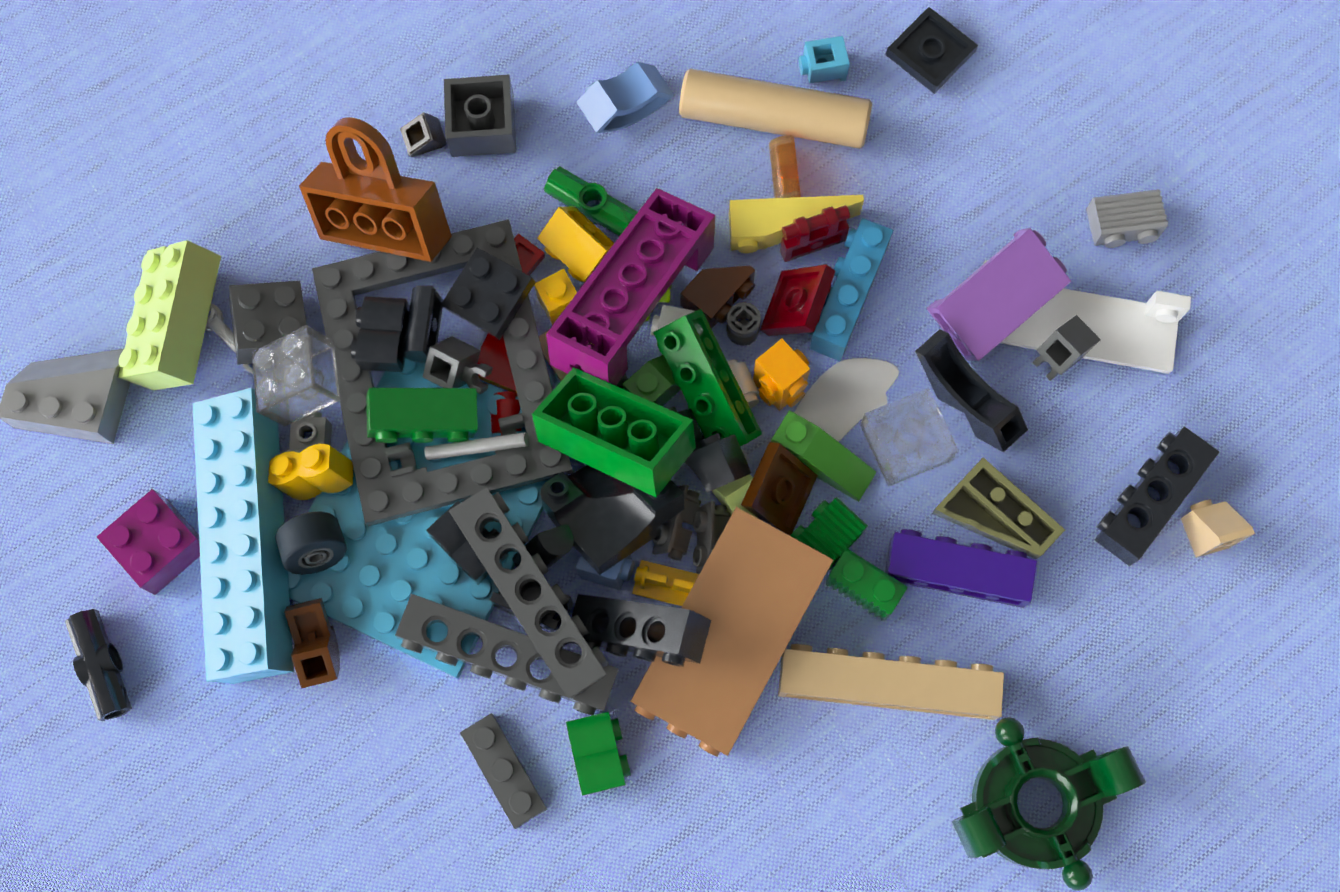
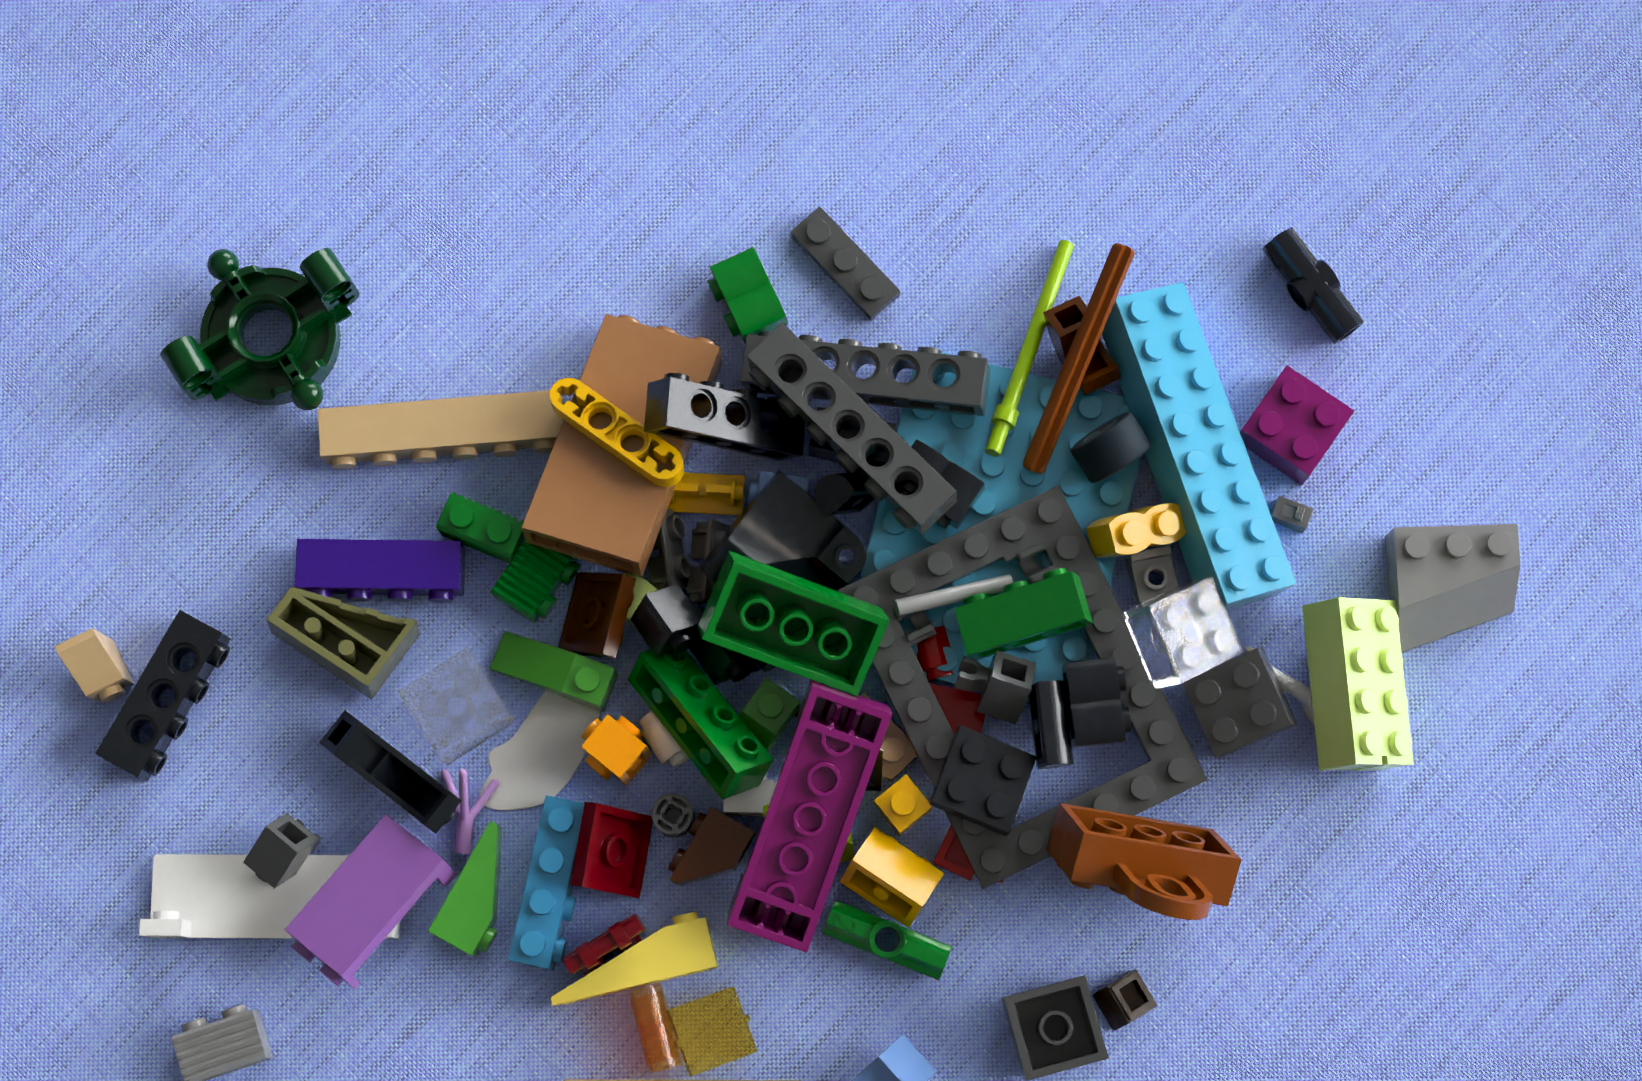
camera: 170 degrees right, 5 degrees up
(180, 472) = (1291, 514): none -> flat silver piece
(313, 626) = (1078, 358): none -> dark orange axle
(393, 593) = (1005, 414): none -> lime bar
(740, 627) = (612, 436): none -> yellow beam
(742, 163) = (711, 1031): none -> clear yellow piece
(916, 340) = (465, 816): none -> lavender plant
(919, 280) = (472, 904): none -> bright green slope

